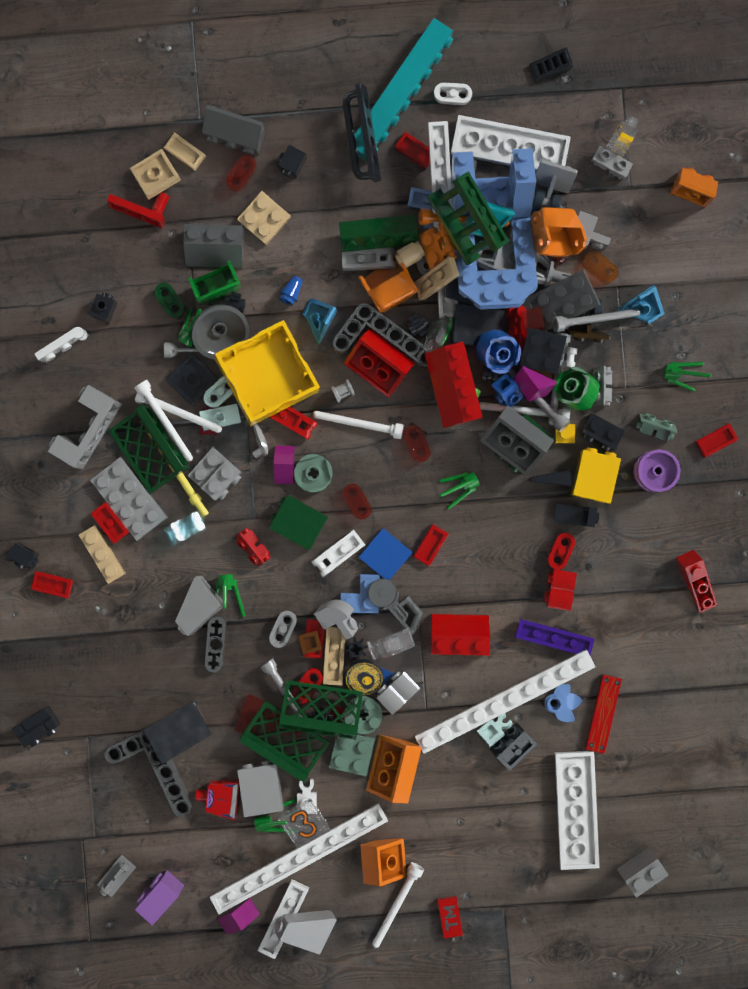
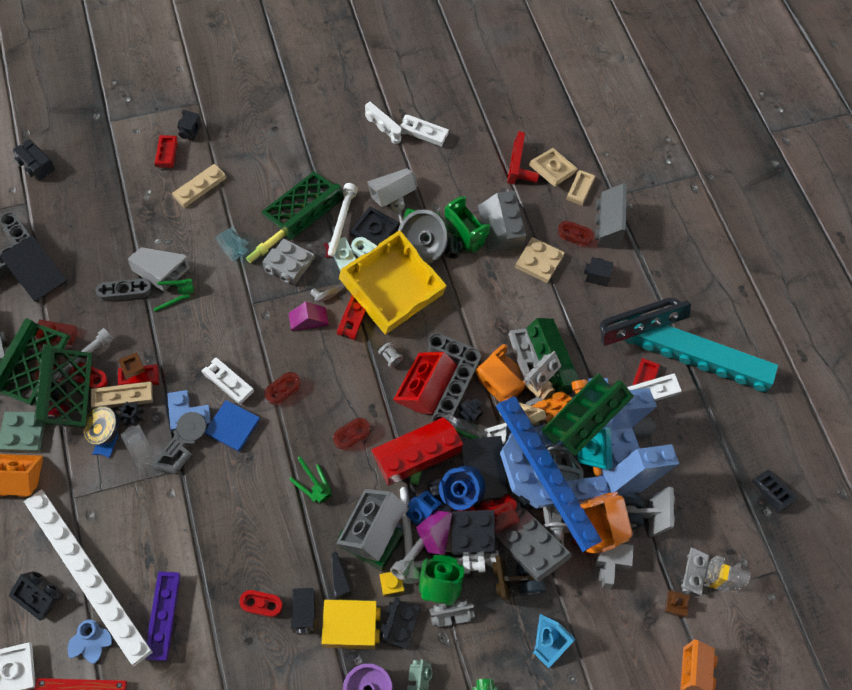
camera: 75 degrees right, 25 degrees down
(78, 302) = (423, 130): none -> white plate
(79, 454) = (293, 151): light grey plate -> none
(107, 312) = (423, 148): black brick -> none
(110, 522) = (229, 185): red plate -> none
(129, 498) = (252, 197): light grey plate -> none
(144, 389) = (355, 186): white piece -> none
(150, 351) = (392, 186): none -> light grey slope
(170, 300) = (440, 197): dark green plate -> none
(256, 554) = (217, 309): red hinge -> none
(283, 628) = (146, 343): light grey plate -> none
(291, 291) = (477, 293): blue cone -> none
(297, 522) = (252, 338): dark green brick -> none
(304, 467) = (308, 353): sand green plate -> none
(319, 317) = (457, 324): dark azure slope -> none
(337, 613) = (164, 388): light grey brick -> none
(372, 720) = (62, 446): sand green plate -> none
(394, 430) = (361, 409): white piece -> none
(396, 241) = (545, 370): none -> light grey hinge
(397, 692) = (88, 462): light grey brick -> none
(430, 545) = (248, 468): red tile -> none
(452, 91) = (713, 401): white plate -> none
(460, 634) = (155, 513): red slope -> none
(492, 731) = (53, 568): light aqua plate -> none
(495, 141) = (677, 428): white plate -> none
(508, 270) = (549, 474): none -> blue plate
(560, 589) = (217, 611): red brick -> none
(561, 323) = (507, 546): light grey piece -> none
(599, 268) = (581, 585): clear orange plate -> none
(633, 187) = (677, 604): none -> reddish brown tile

